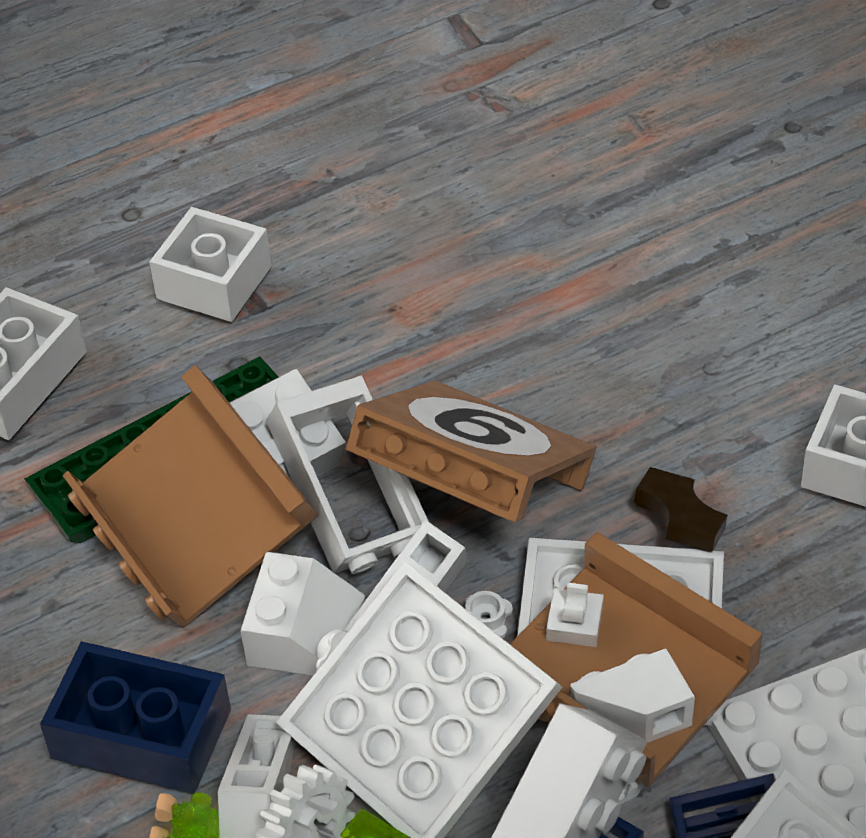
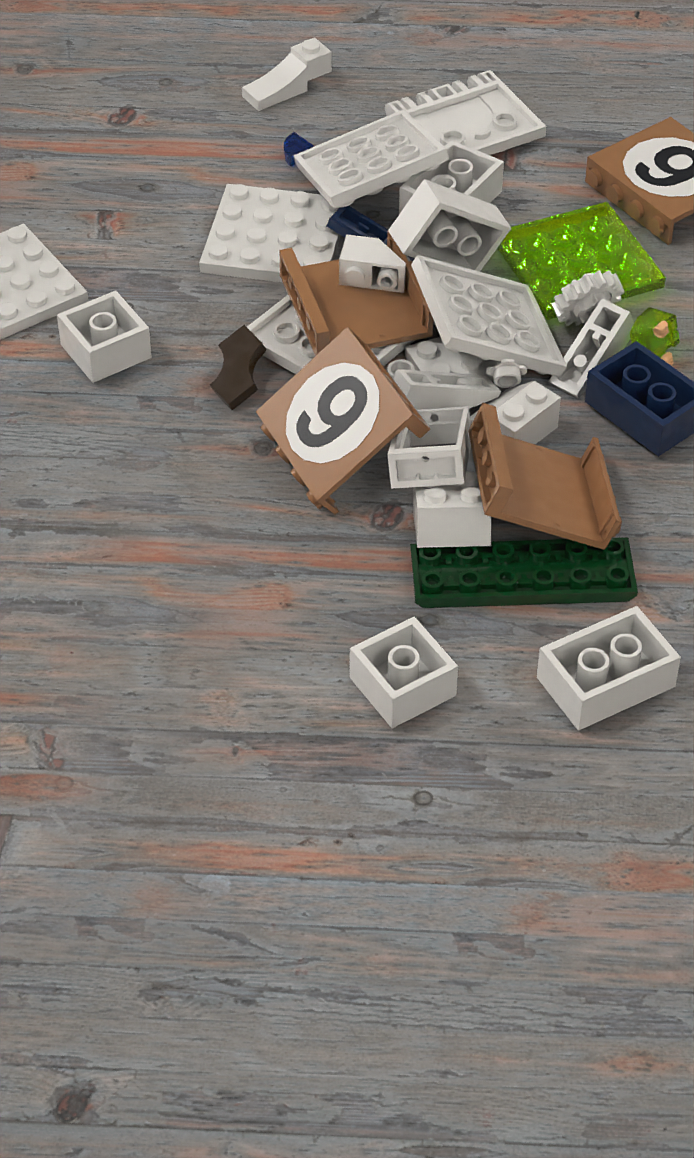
camera: 150 degrees left, 0 degrees up
(575, 616) = (363, 320): white tile -> none

